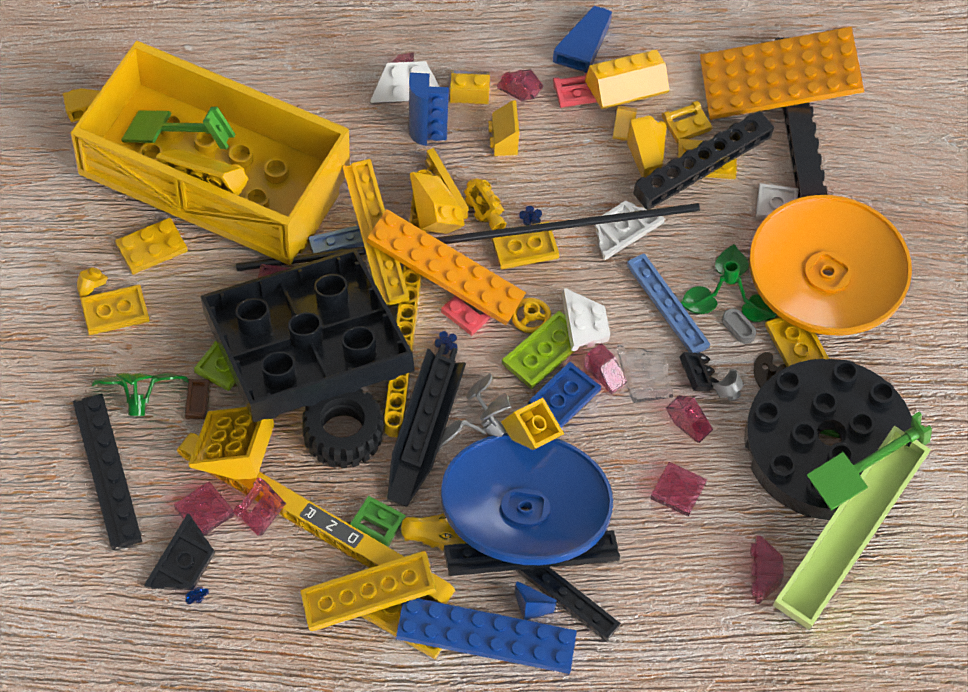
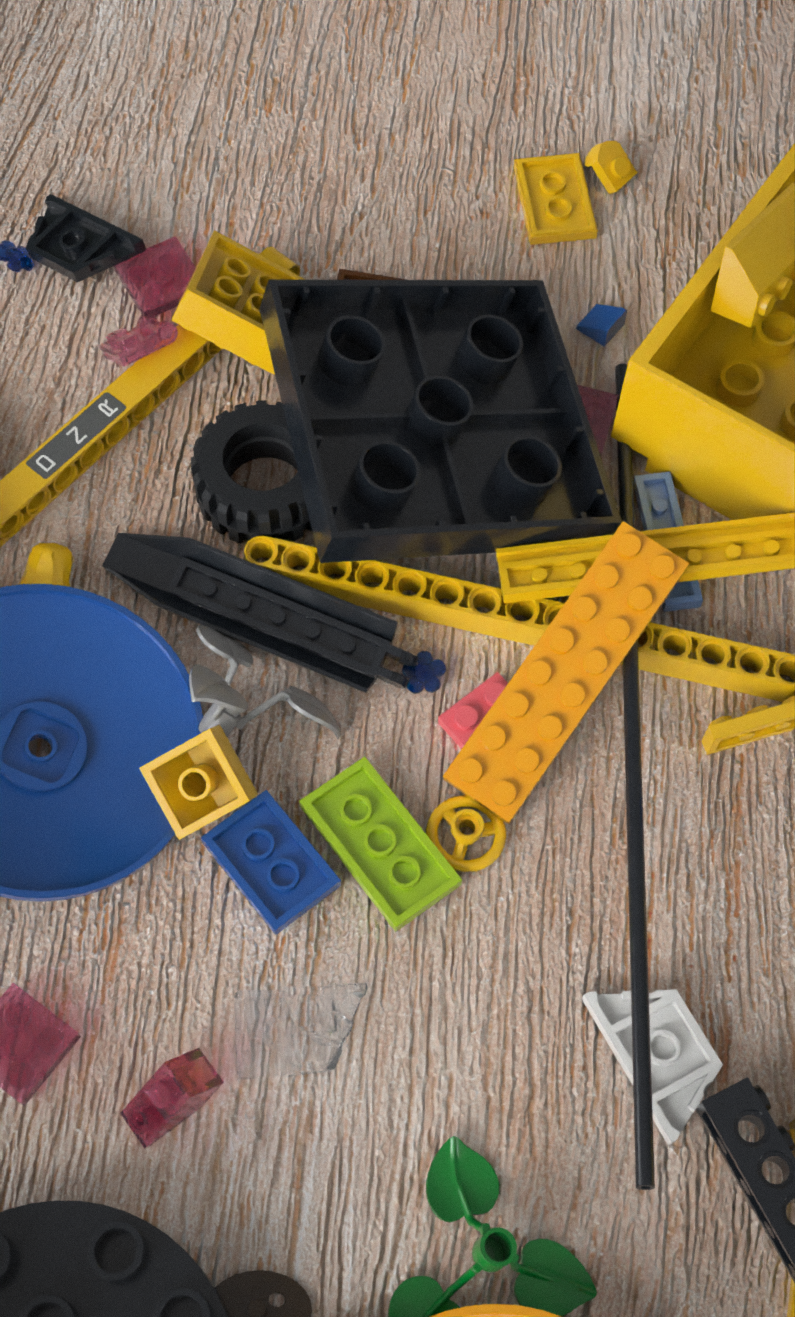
camera: 100 degrees right, 5 degrees up
(107, 472) = (261, 168): black plate -> none
(136, 402) = (374, 154): green plant -> none
(151, 245) = (668, 248): yellow plate -> none
(207, 277) = (602, 323): none -> blue slope
(380, 516) = (84, 522): bright green plate -> none
(435, 204) = (723, 674): yellow slope -> none
(485, 203) = (728, 780): yellow brick -> none
(525, 249) = (606, 844): yellow plate -> none
(530, 215) = (702, 870): clear blue plant -> none
(585, 320) = (428, 925): white wing -> none
(605, 368) = (310, 944): clear pink slope -> none
(668, 304) = (453, 1109): medium blue plate -> none
(697, 372) = (279, 1139): black plate -> none
(729, 386) = (227, 1195): light grey piece -> none
(739, 326) = (385, 1261): light grey tile -> none

